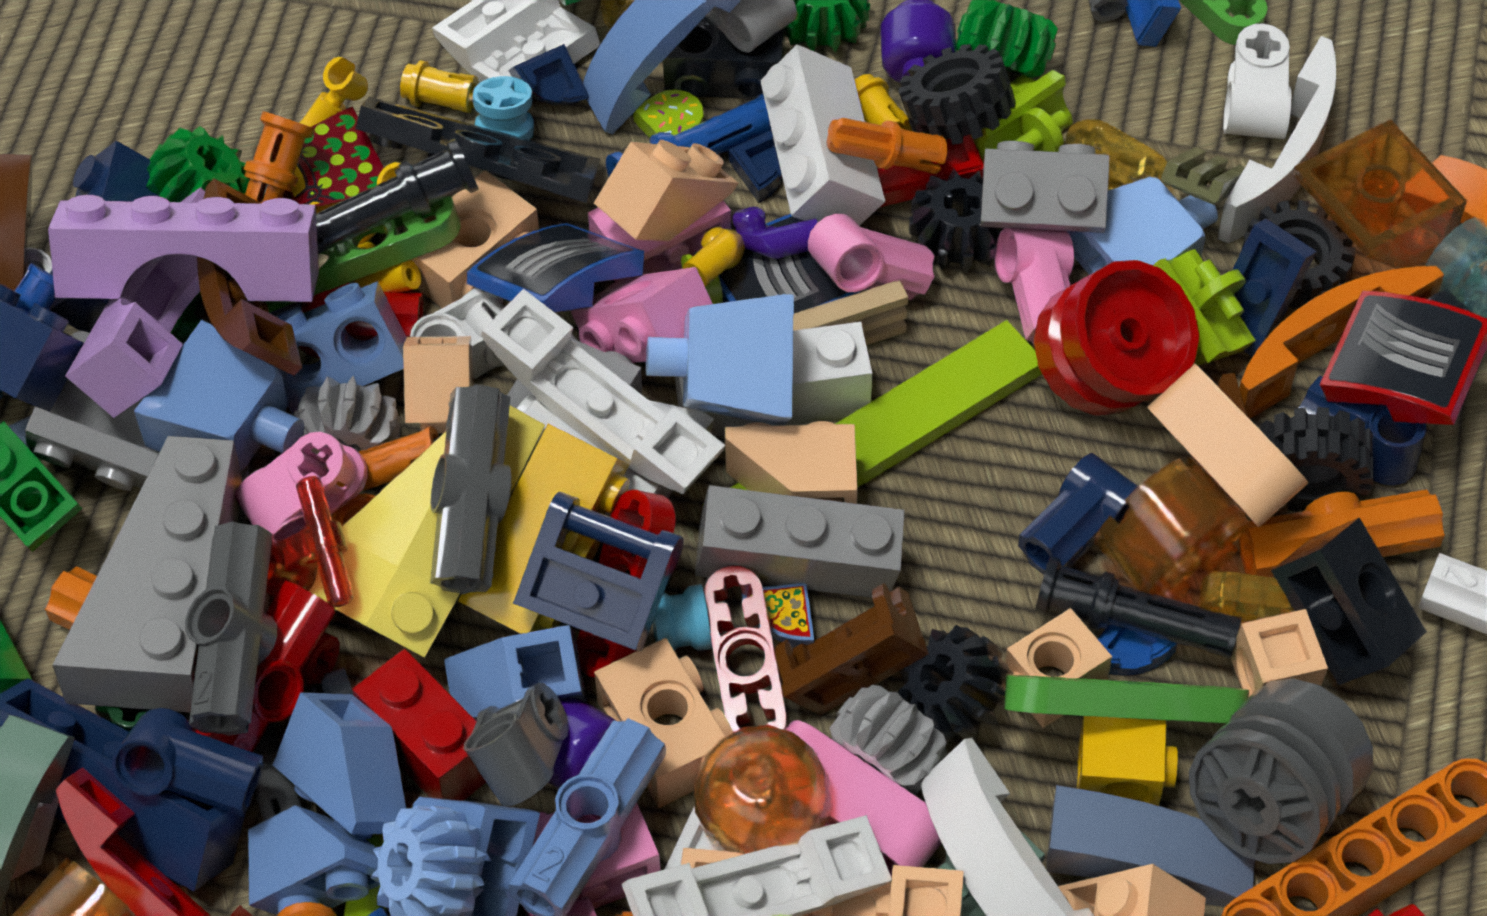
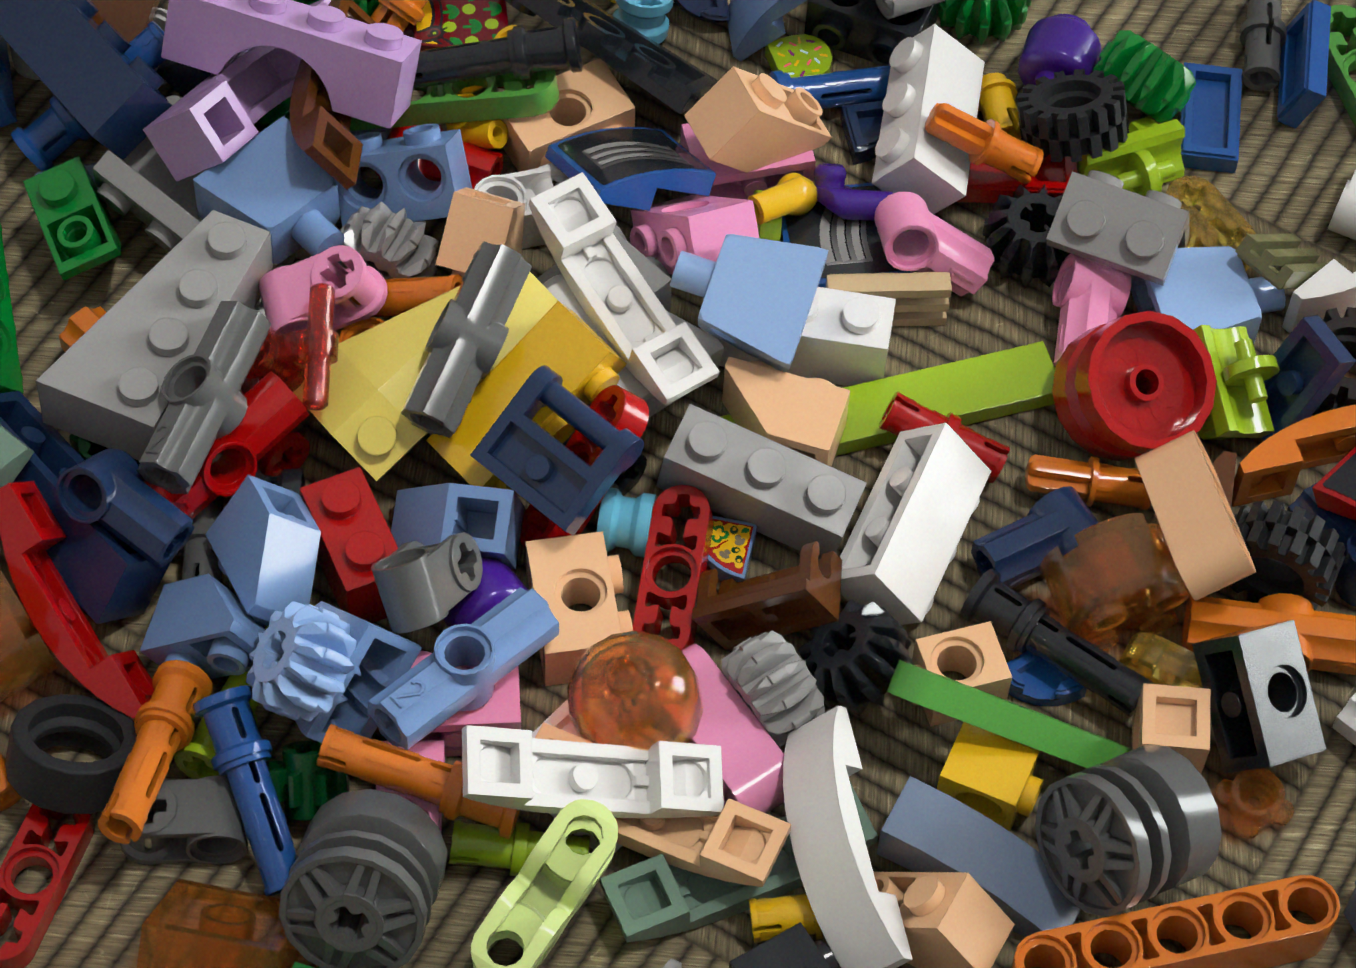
camera: 15 degrees right, 0 degrees up
(952, 441) = (907, 414): none -> red pin
(957, 534) = (913, 522): none -> white brick
(1081, 60) = (1212, 119): none -> blue tile
(1104, 438) = (1090, 479): none -> orange axle
(1386, 690) = (1259, 785): none -> clear orange plate

